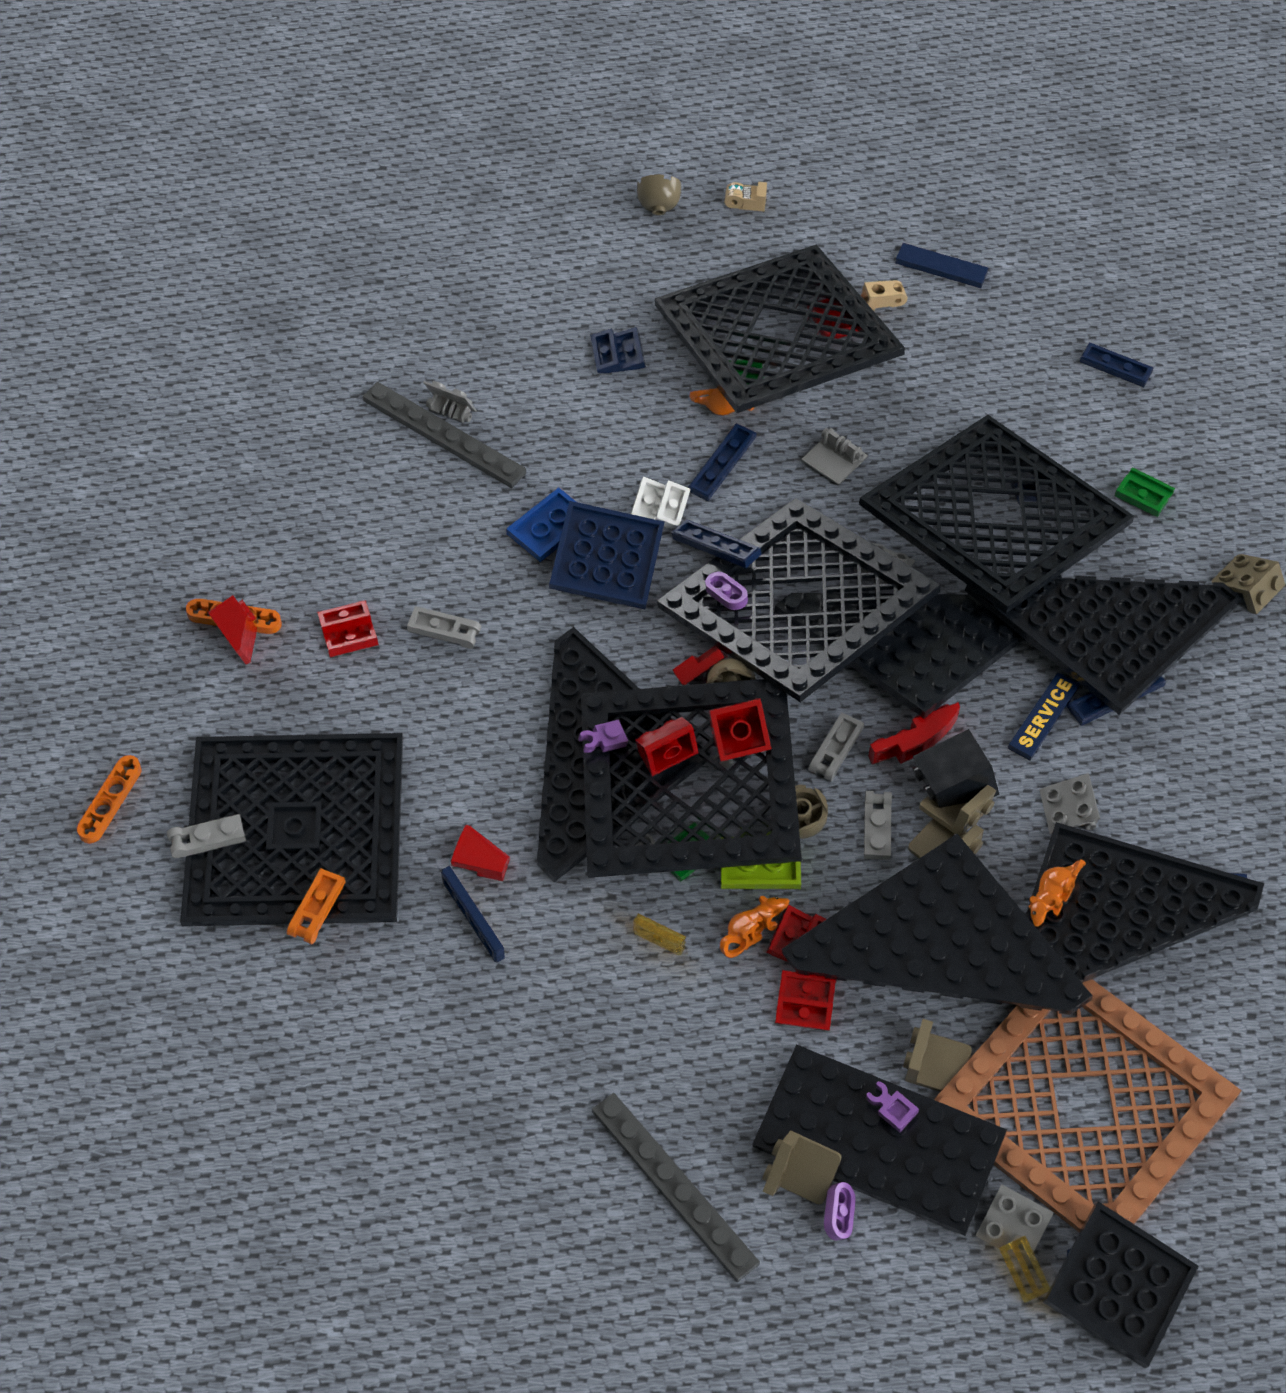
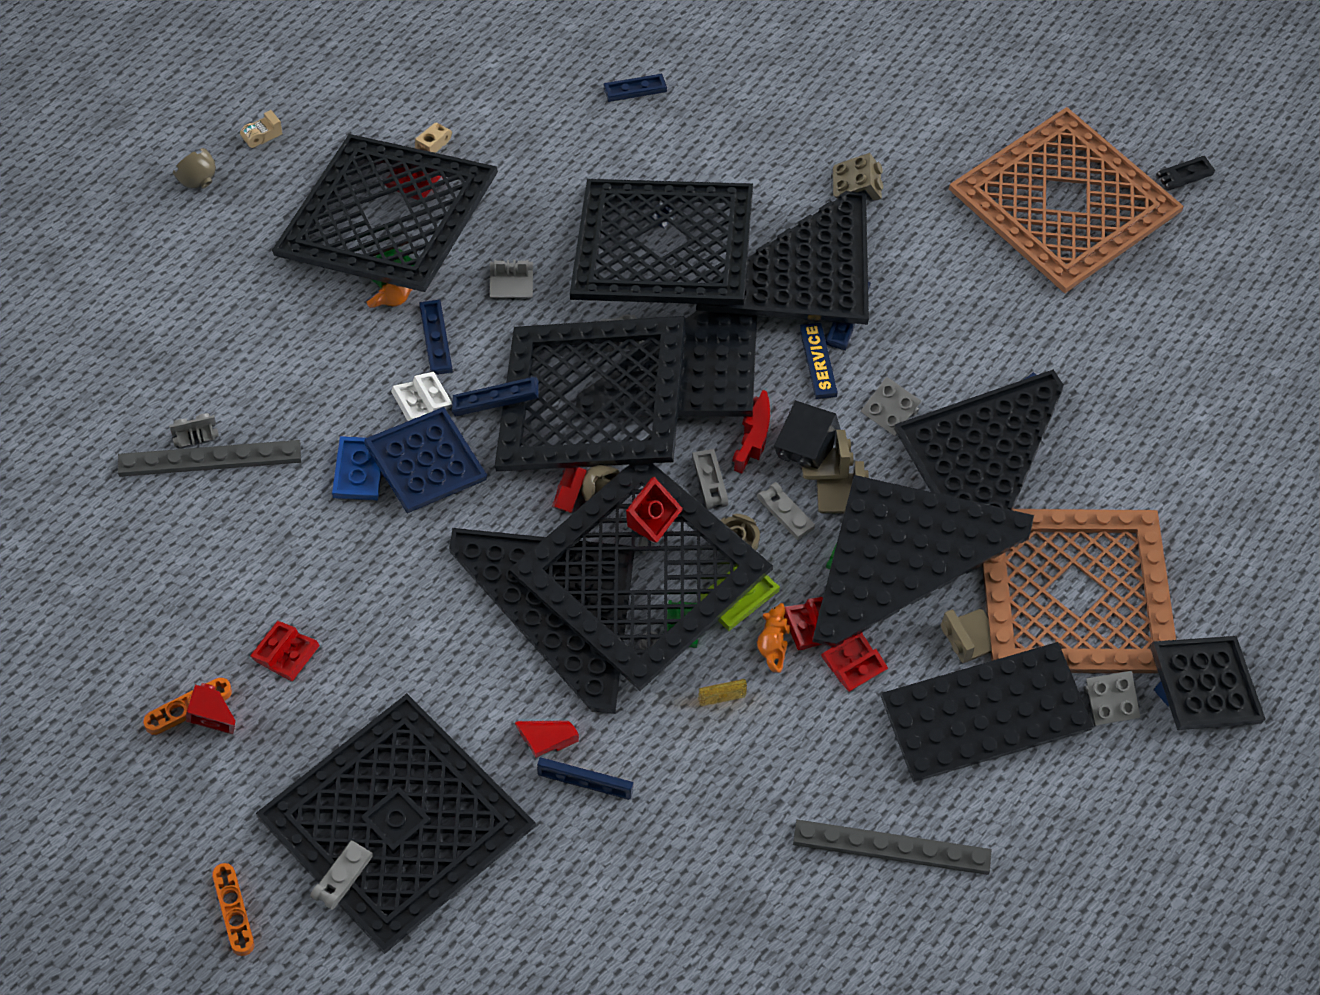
camera: 45 degrees left, 0 degrees up
(316, 905) = (474, 858): orange plate -> none
(443, 627) = (356, 596): light grey plate -> none
(606, 735) = (561, 584): medium lavender plate -> none
(617, 350) = (279, 307): dark blue slope -> none
(667, 745) = (612, 557): red slope -> none
(729, 594) = (542, 423): medium lavender plate -> none
(801, 1168) = (963, 767): dark tan bracket -> none
(839, 1211) = (1007, 776): medium lavender plate -> none
(894, 1109) = (986, 681): medium lavender plate -> none
(941, 265) = (450, 93): dark blue tile -> none
(1036, 1292) = (1126, 711): clear yellow tile -> none
(1054, 888) = (940, 465): orange animal -> none
(1144, 492) = (738, 163): green plate -> none

